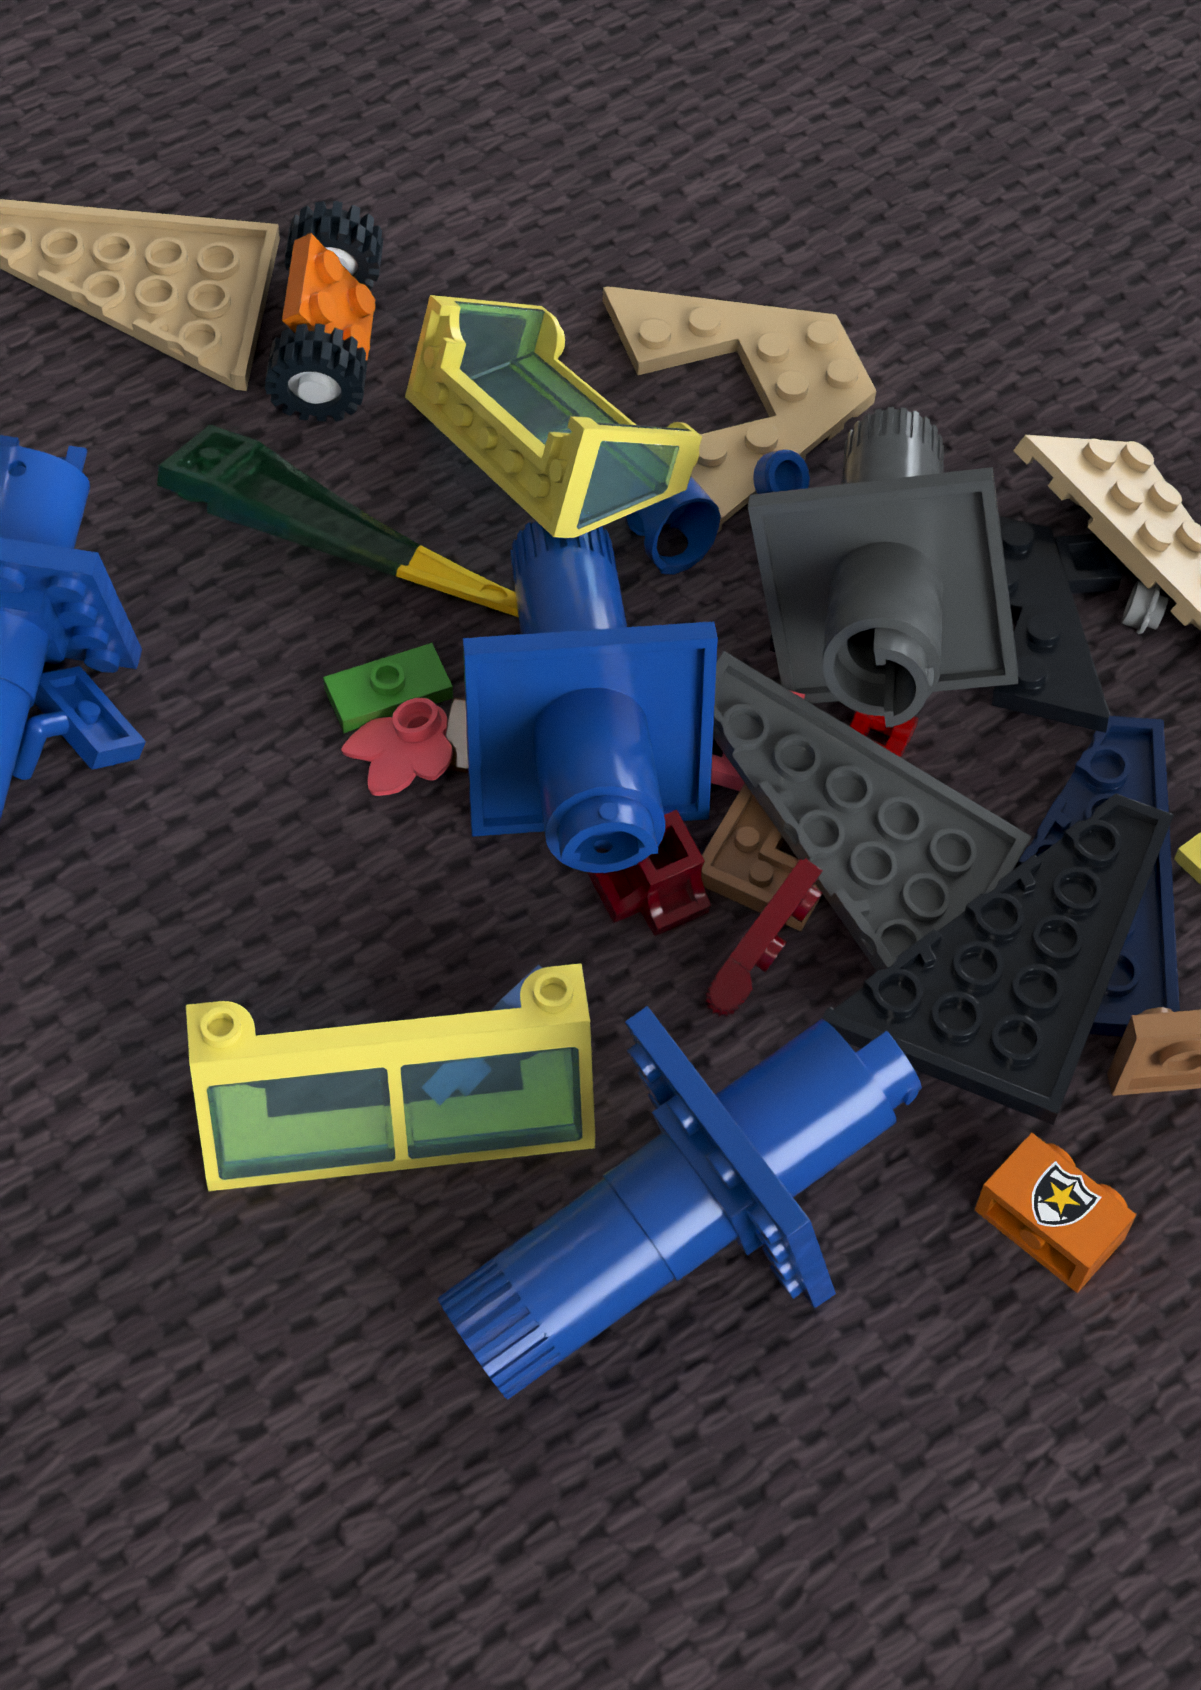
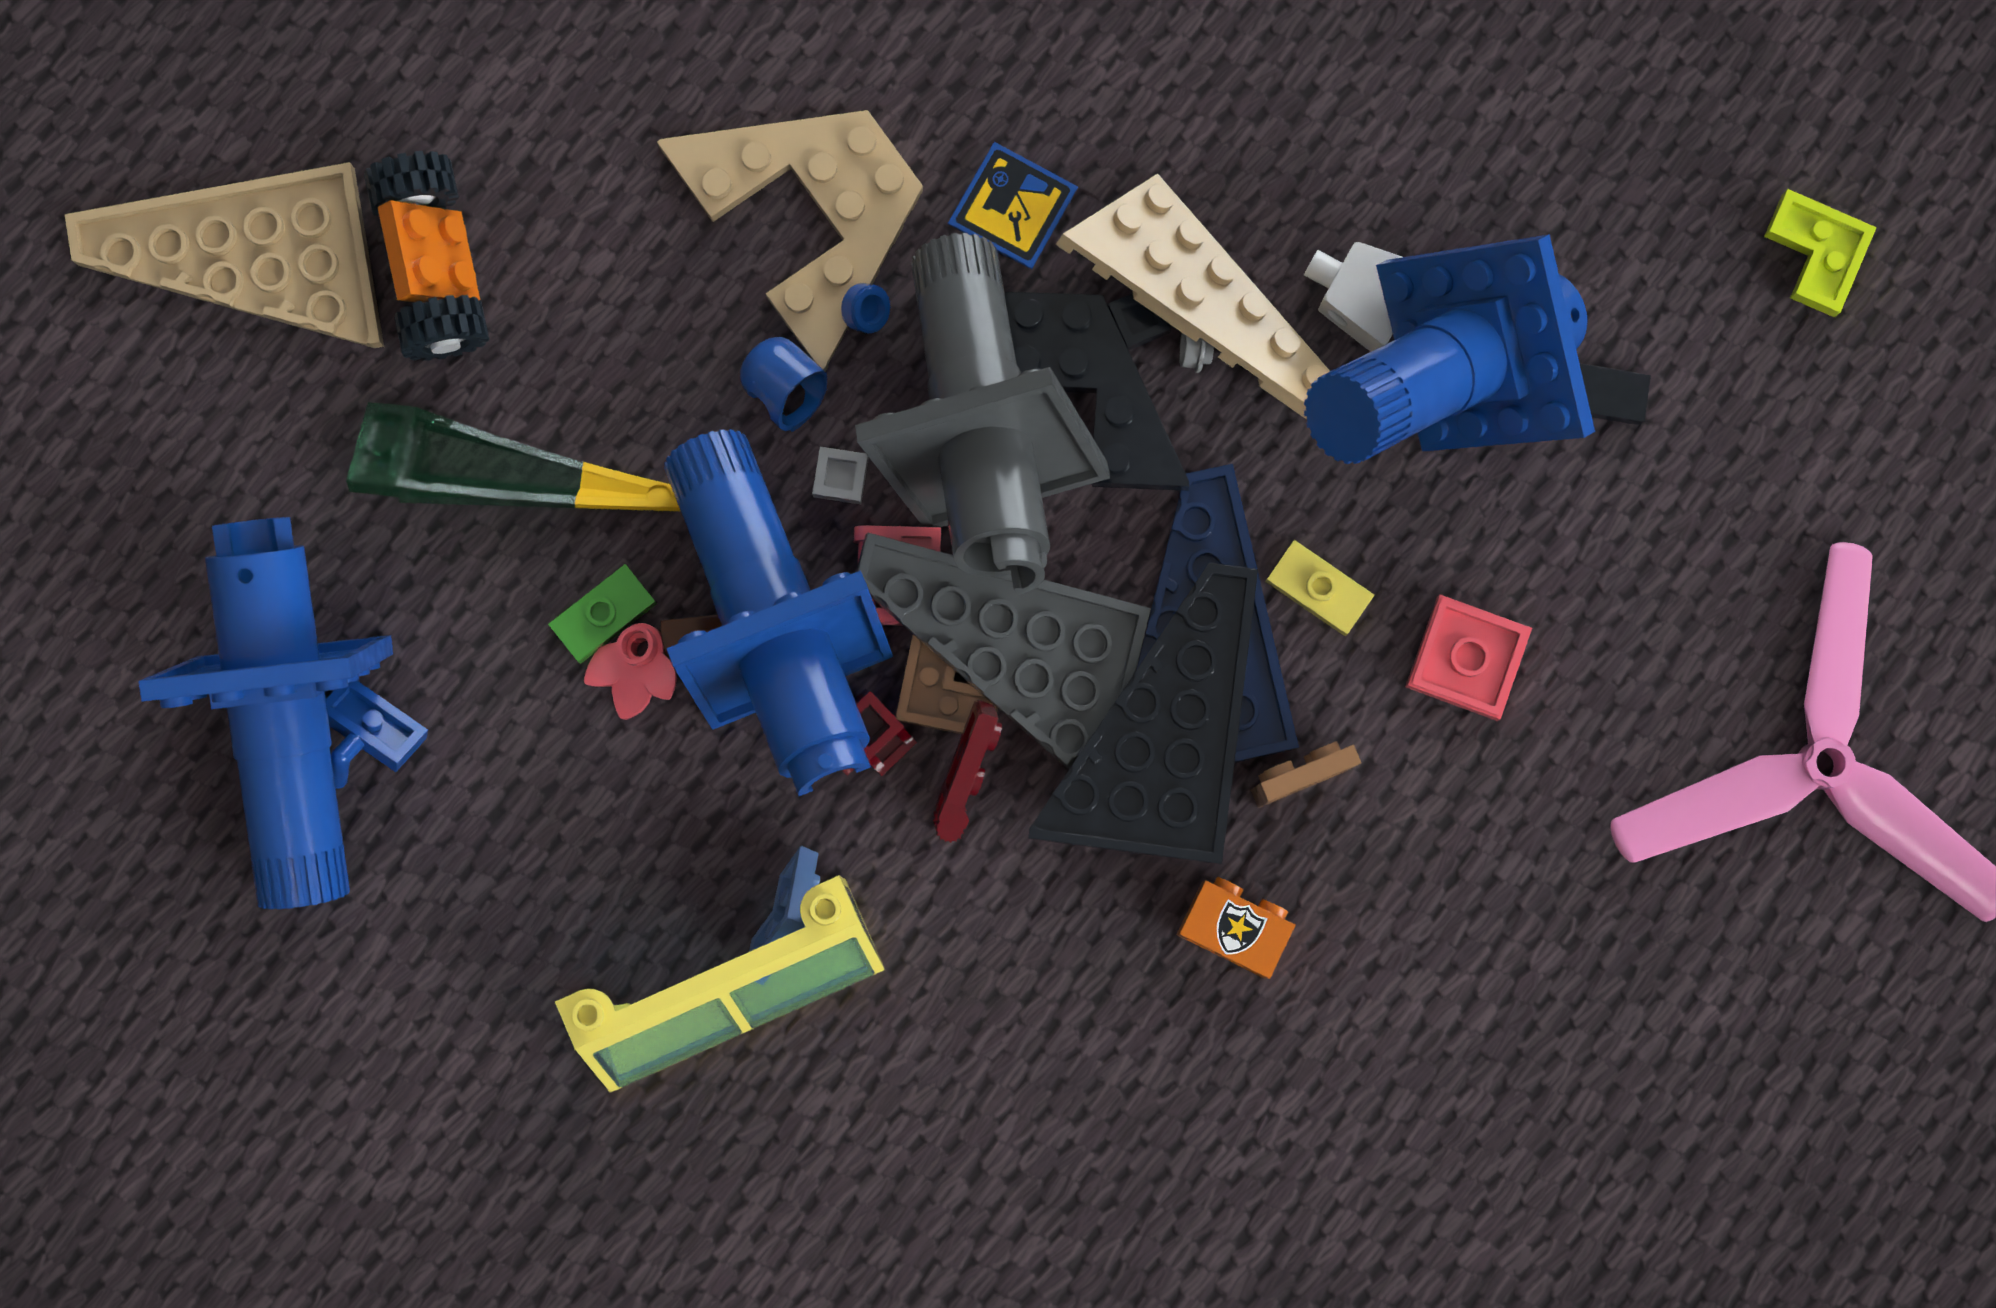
camera: 15 degrees left, 25 degrees up
(535, 426) = (650, 333): windscreen -> none
(707, 607) = (840, 475): none -> light grey plate
(708, 1179) = (984, 1007): blue piece -> none
(977, 423) = (1013, 205): none -> piece

